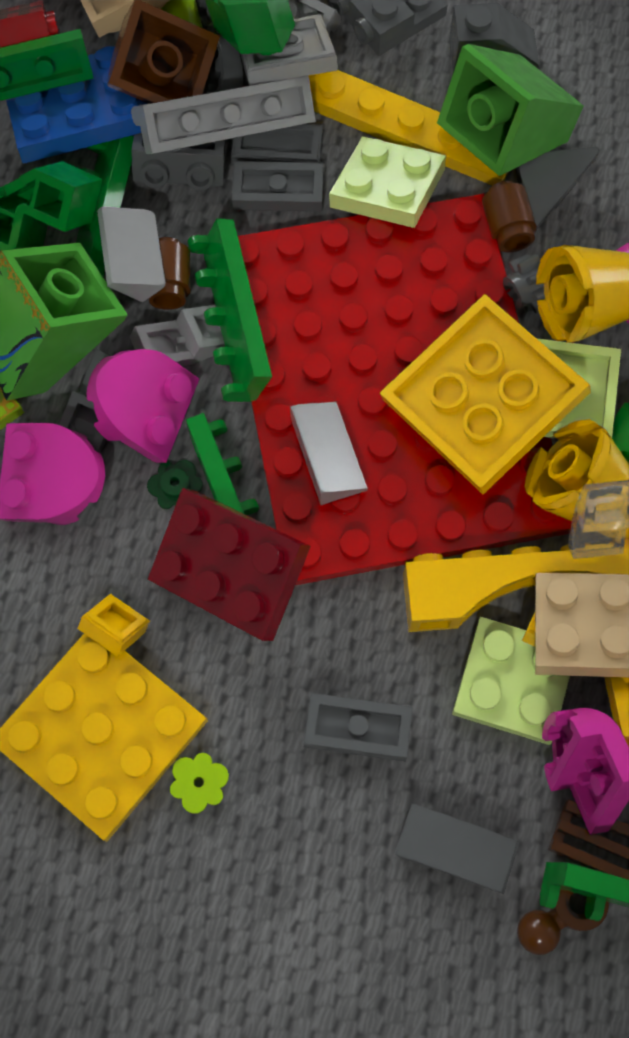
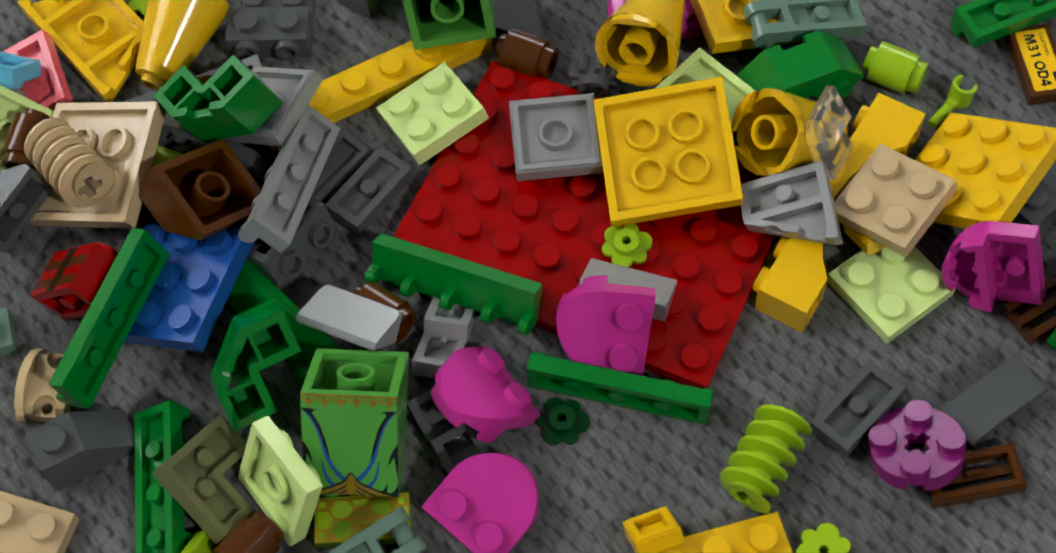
camera: 50 degrees left, 10 degrees down
(228, 564) = (670, 410): dark red plate -> none
(244, 674) = (761, 454): none -> lime piece
(269, 457) = (606, 324): none -> dark pink slope
(327, 818) = (922, 425): none -> magenta plate
(372, 434) = (630, 253): none -> lime plant
(400, 906) = (985, 491): none -> reddish brown tile
(430, 288) = (555, 137): none -> light grey plate
(514, 538) = (793, 205): none -> light grey wing

